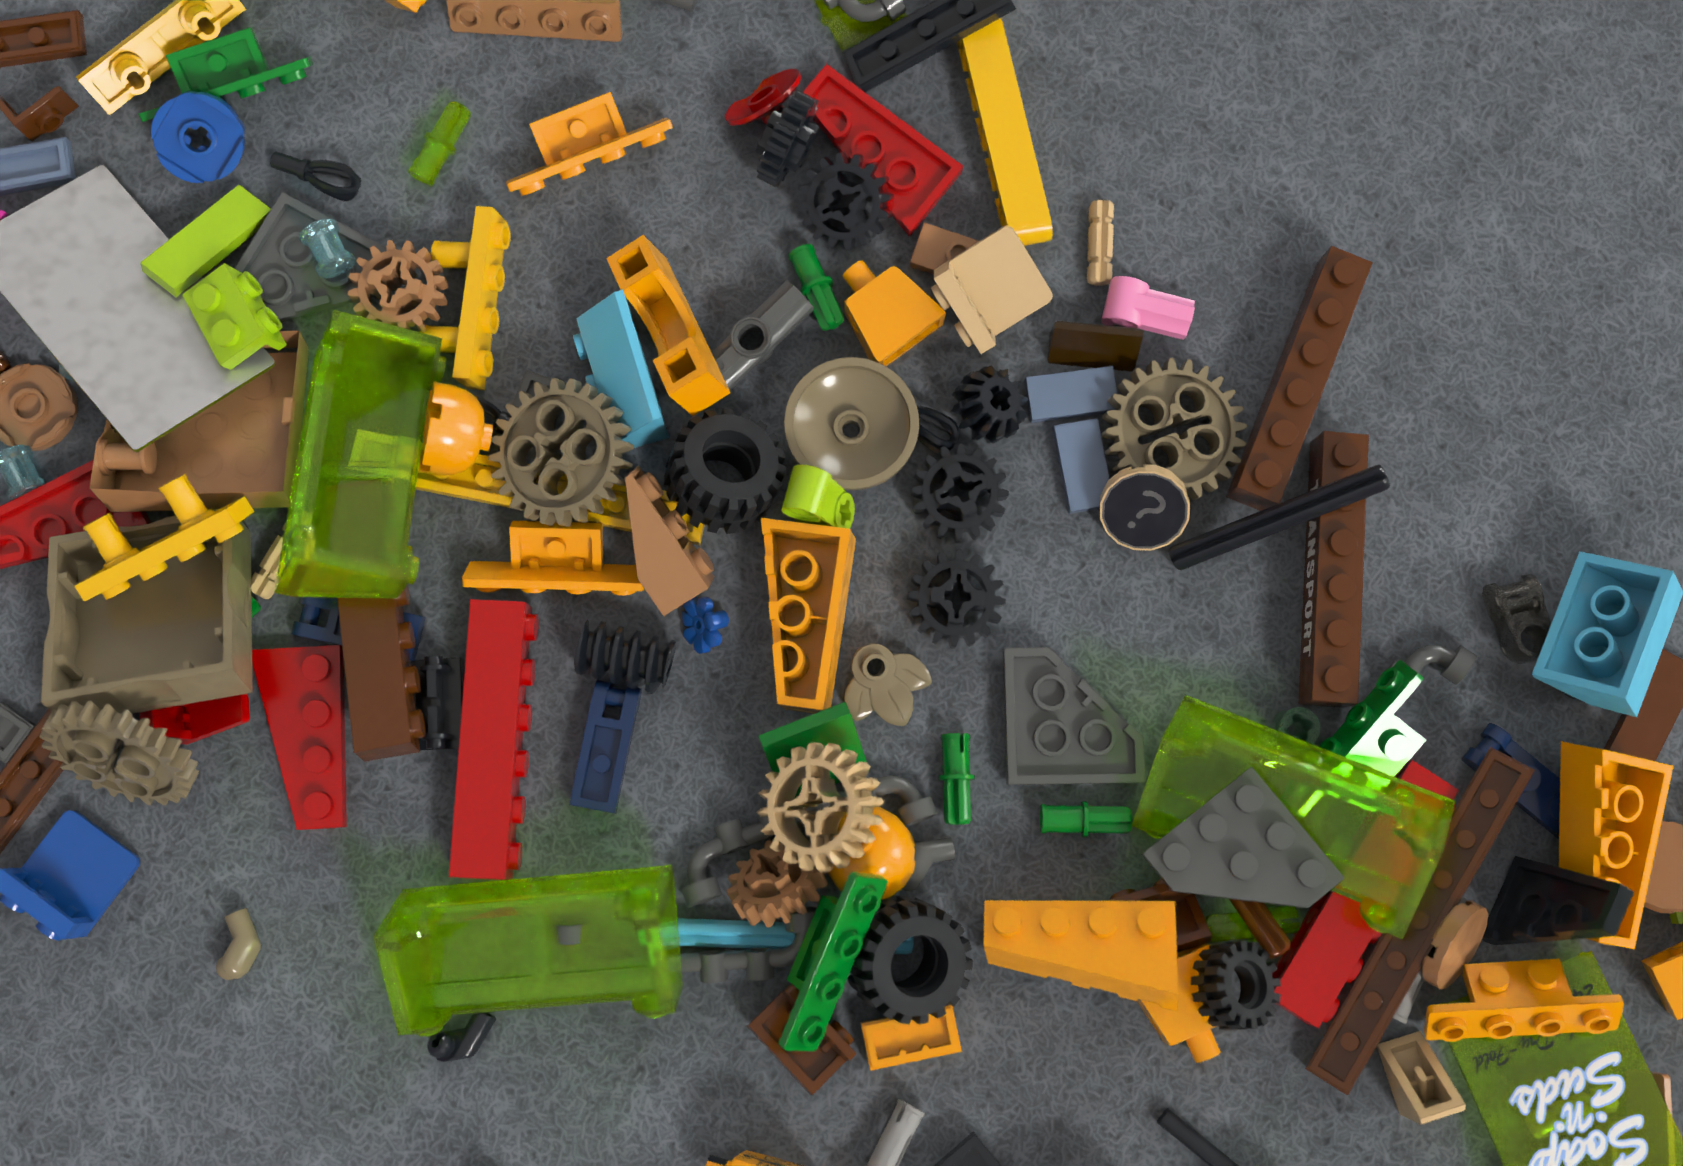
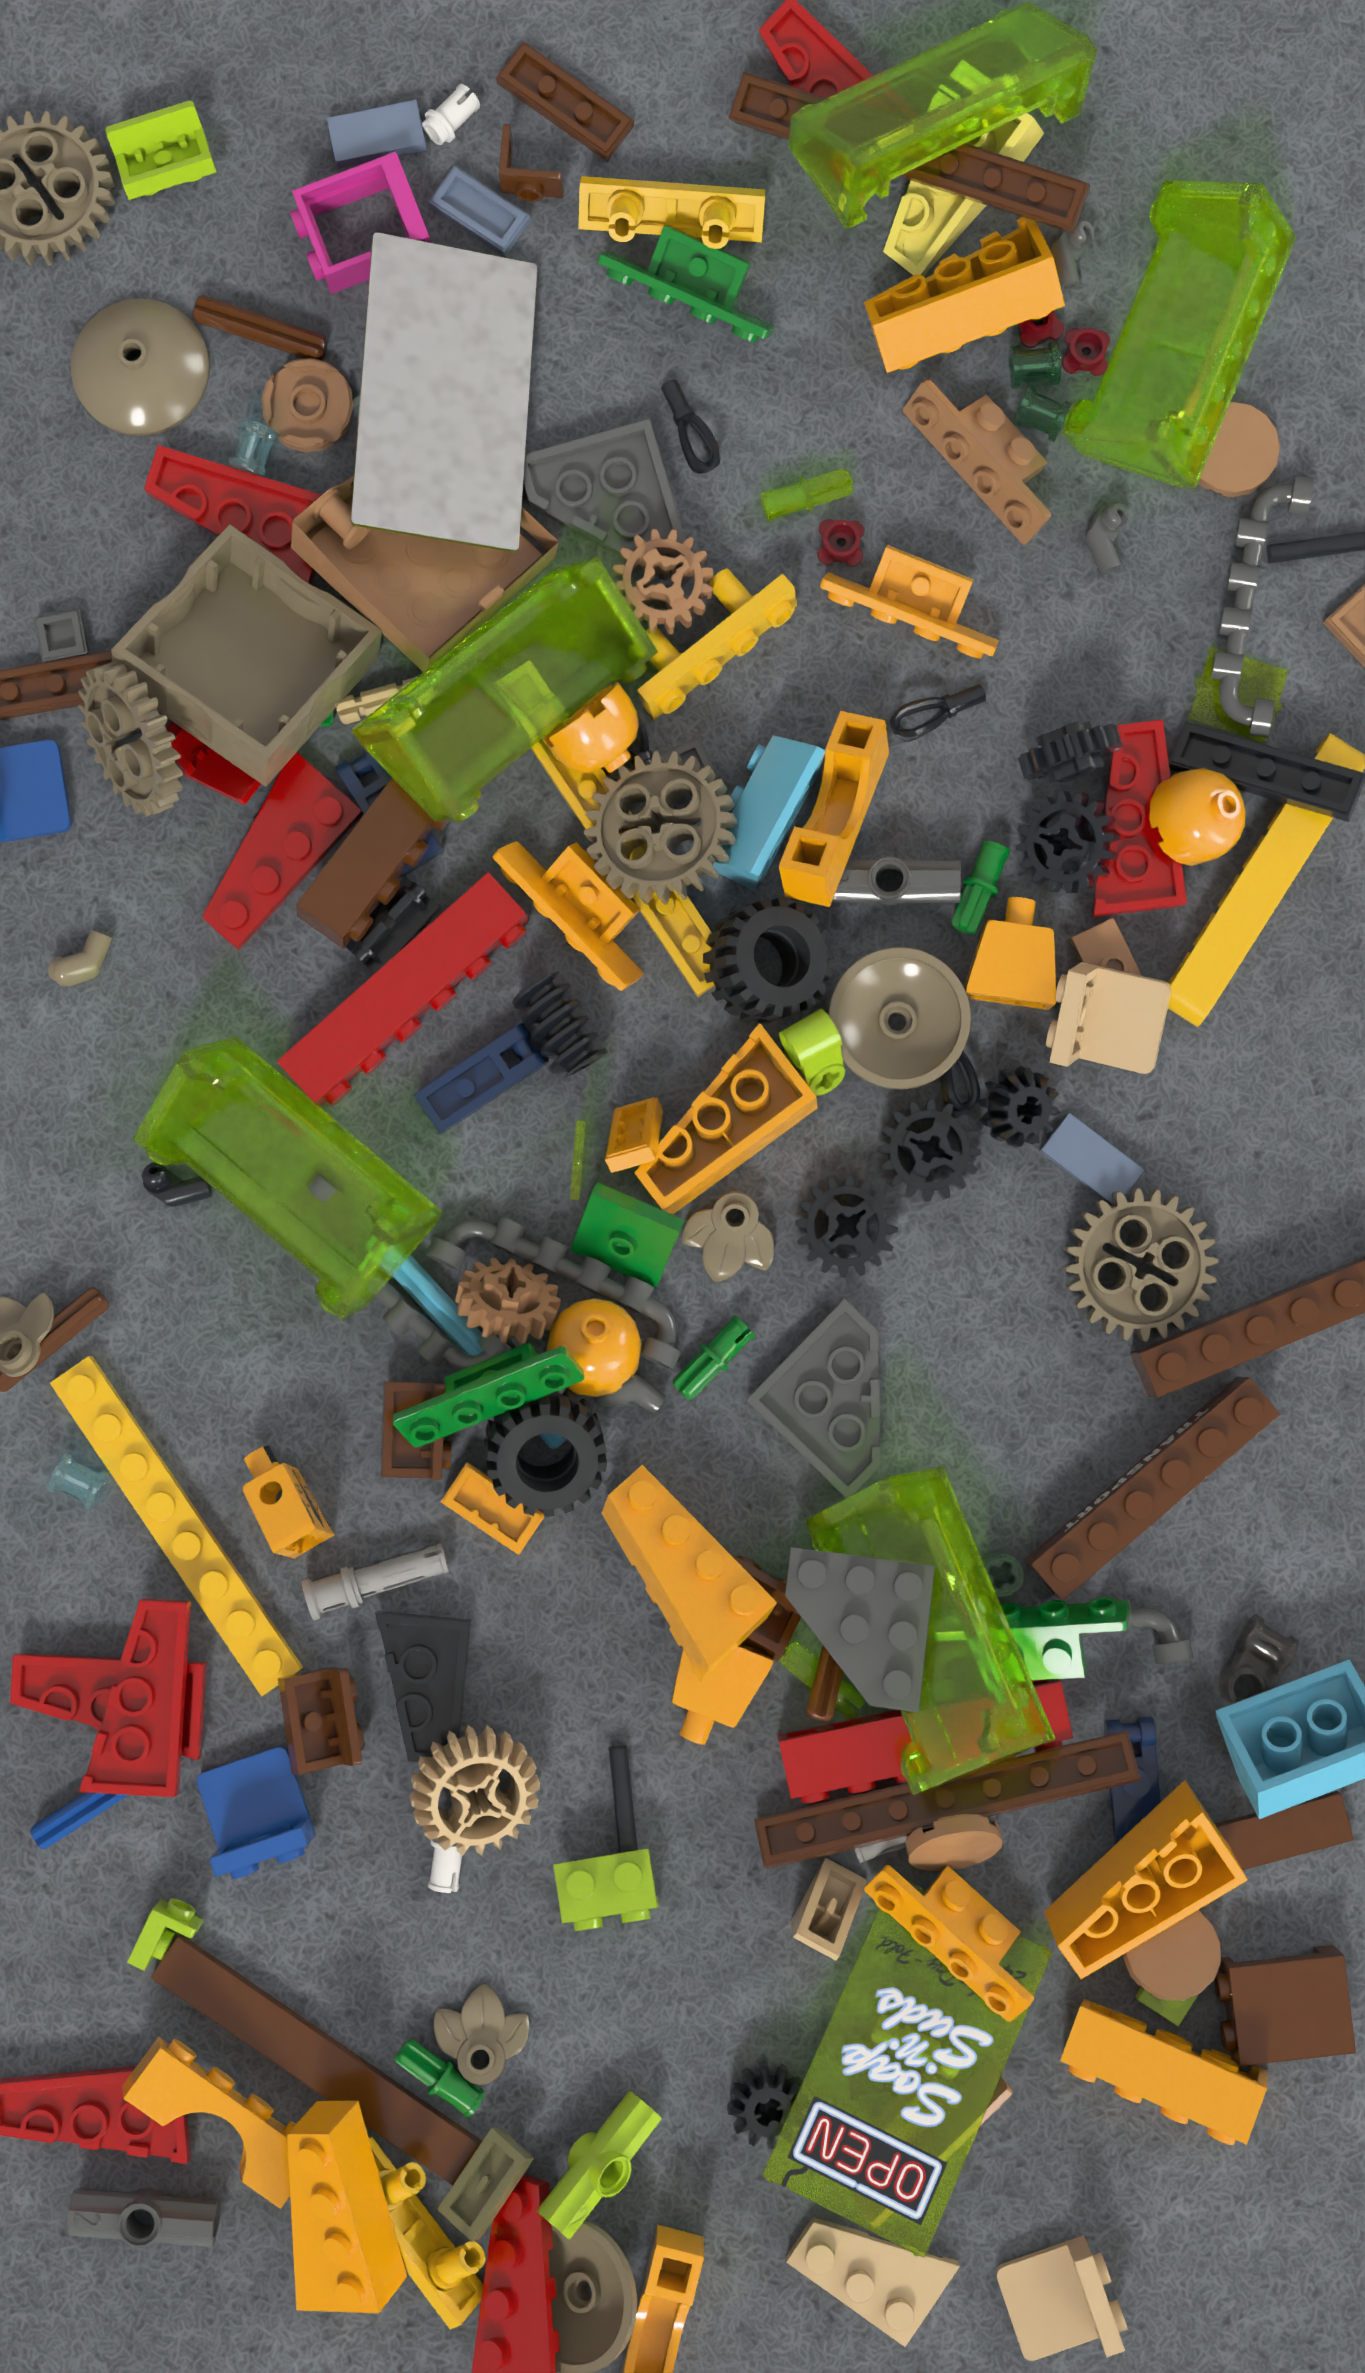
camera: 50 degrees right, 5 degrees up
(173, 143) = (604, 300): blue plate -> none
(195, 528) = (285, 614): yellow plate -> none
(206, 241) = (557, 403): lime tile -> none
(233, 315) = (520, 485): lime bracket -> none
(327, 248) = (639, 498): clear light blue bush -> none
(495, 140) = (832, 531): none -> dark red plate
(664, 555) = (661, 981): medium nougat slope -> none
(677, 189) = (948, 703): none -> black piece
(703, 624) = (641, 1058): blue plant -> none
(729, 732) = (579, 1158): none -> clear neon green piece
(751, 679) = (634, 1134): none -> light orange plate
(767, 97) = (1086, 703): red dish -> none
(812, 770) = (609, 1246): tan gear -> none
(913, 101) = (1197, 815): none -> light orange cylinder
(1081, 463) = (1044, 1222): sand blue tile -> none
(1085, 819) = (777, 1482): green axle -> none
(1094, 345) = (1145, 1141): dark brown slope -> none
(1100, 242) = (1233, 1066): tan axle -> none
(1136, 306) = (1211, 1146): bright pink piece -> none
(1144, 507) = (1055, 1299): black tile -> none
(1255, 985) = (776, 1723): black tyre -> none
(1279, 517) = (1147, 1407): black axle -> none
(1554, 905) = (1052, 1887): black wing -> none

